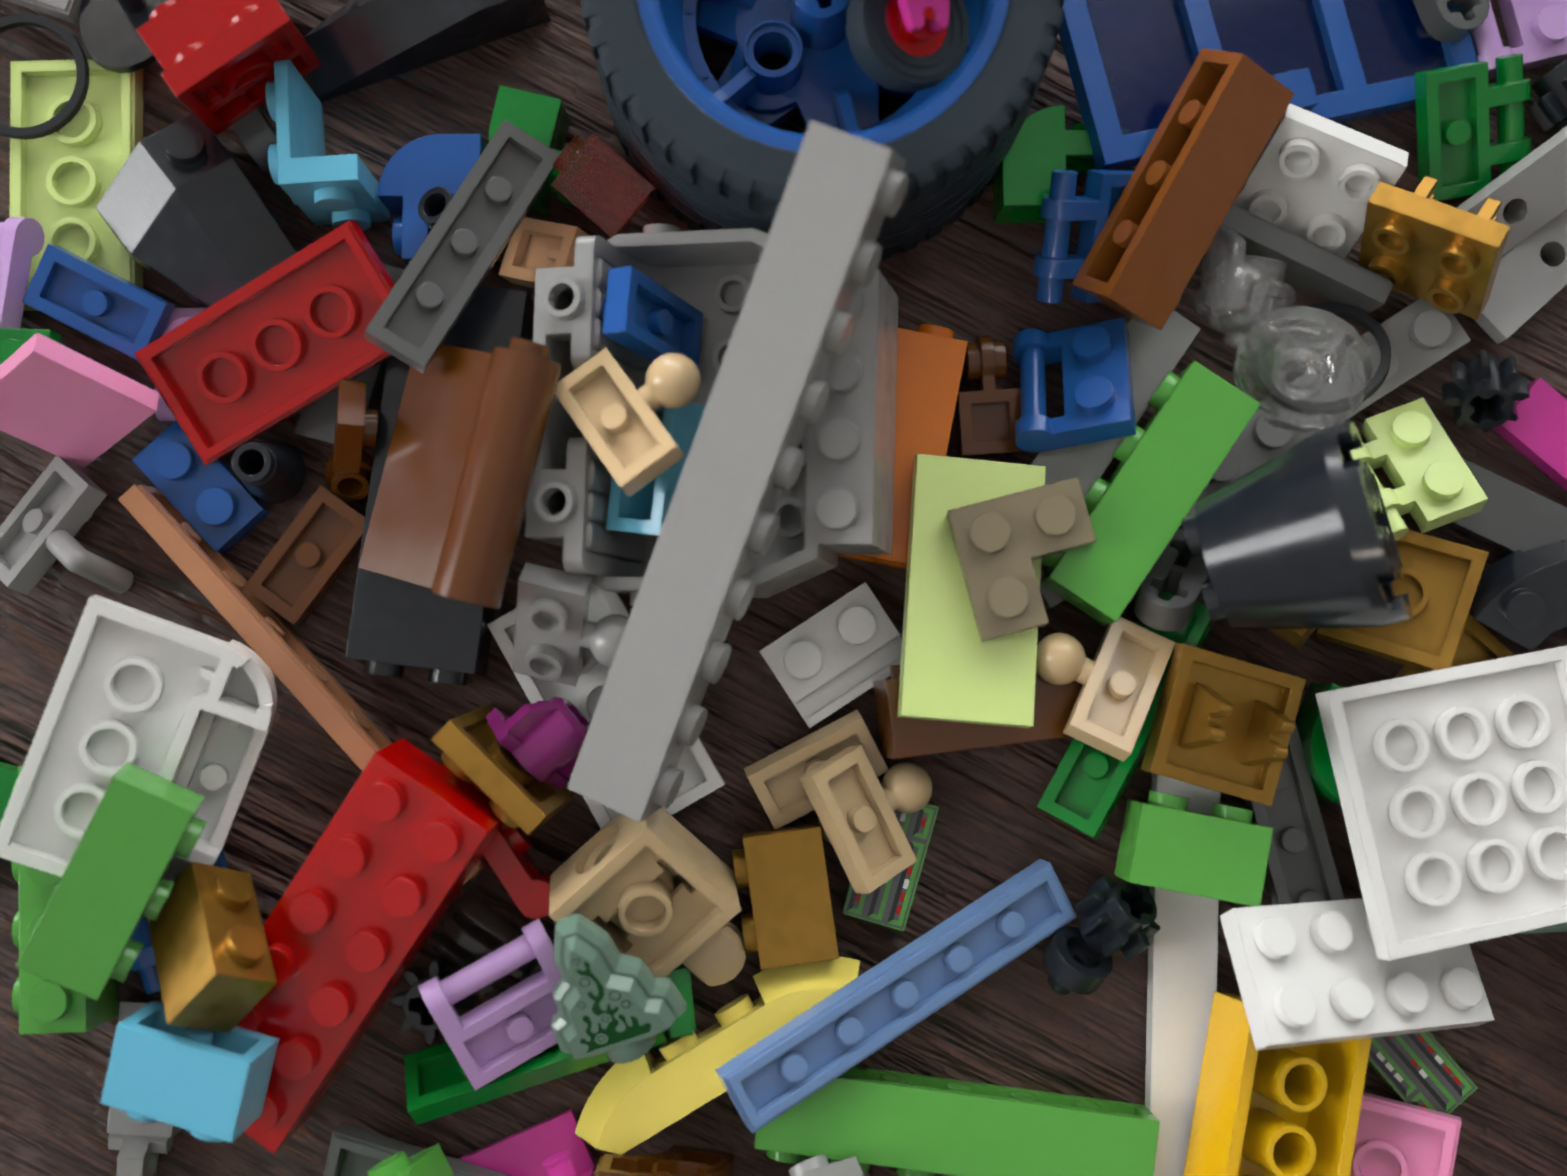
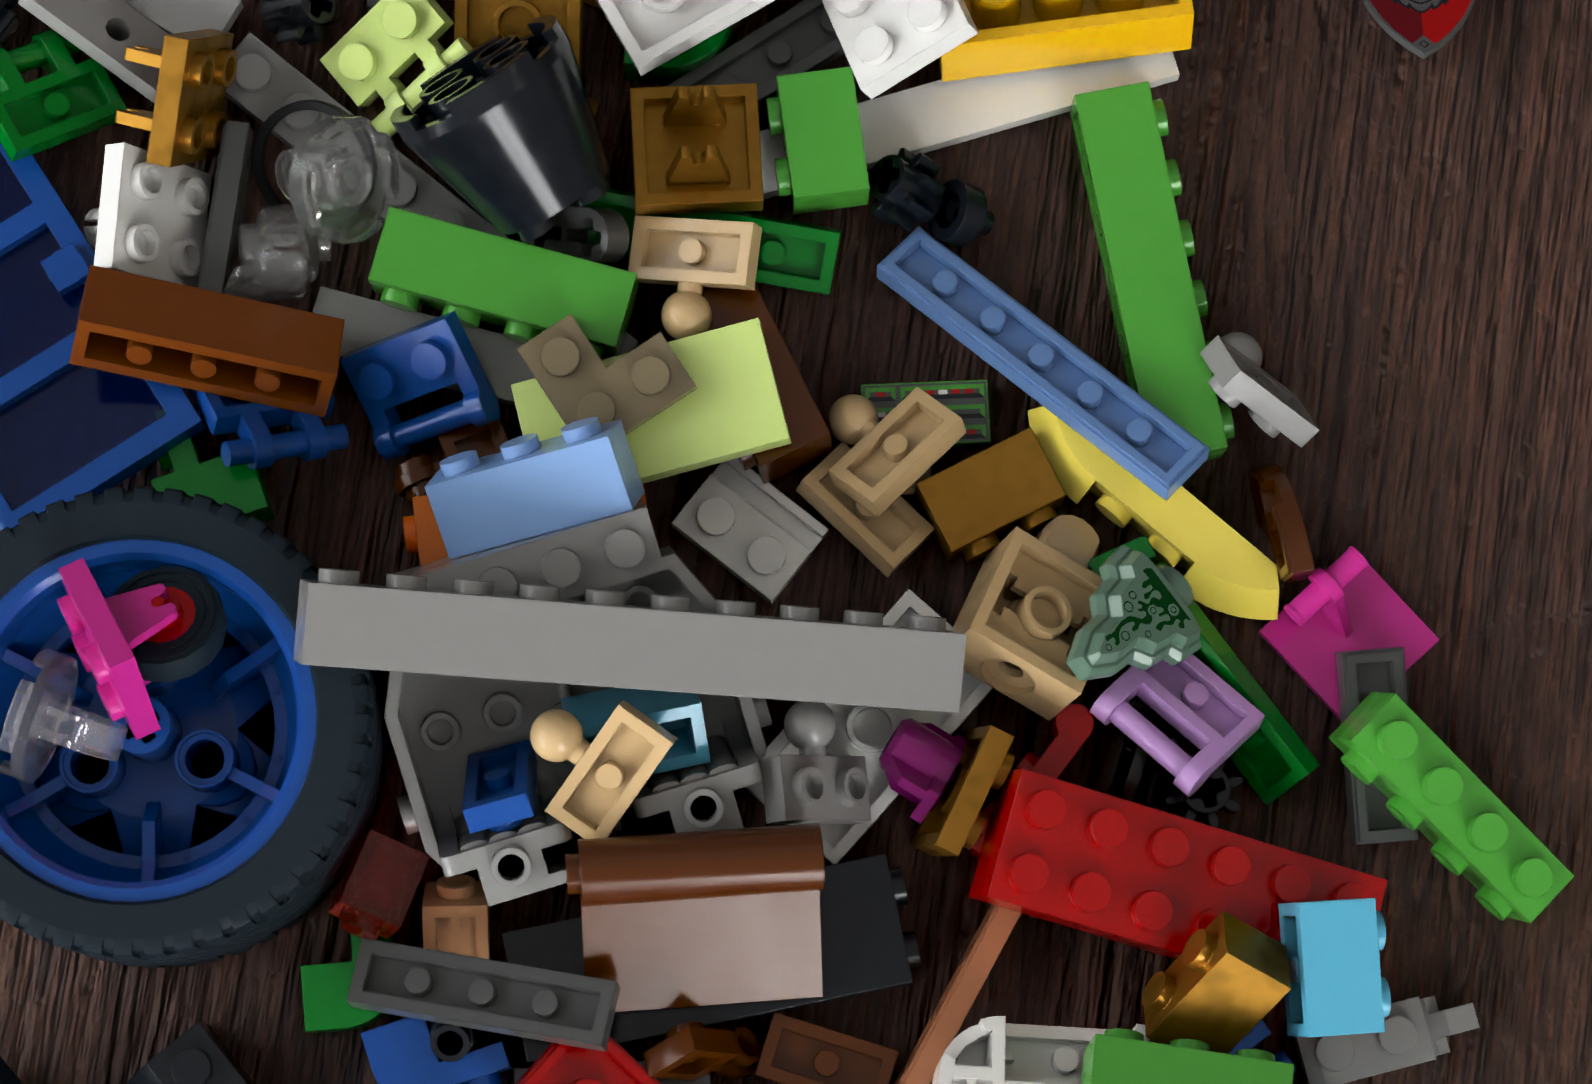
camera: 110 degrees left, 5 degrees down
(932, 448) = (534, 486): none -> light blue brick

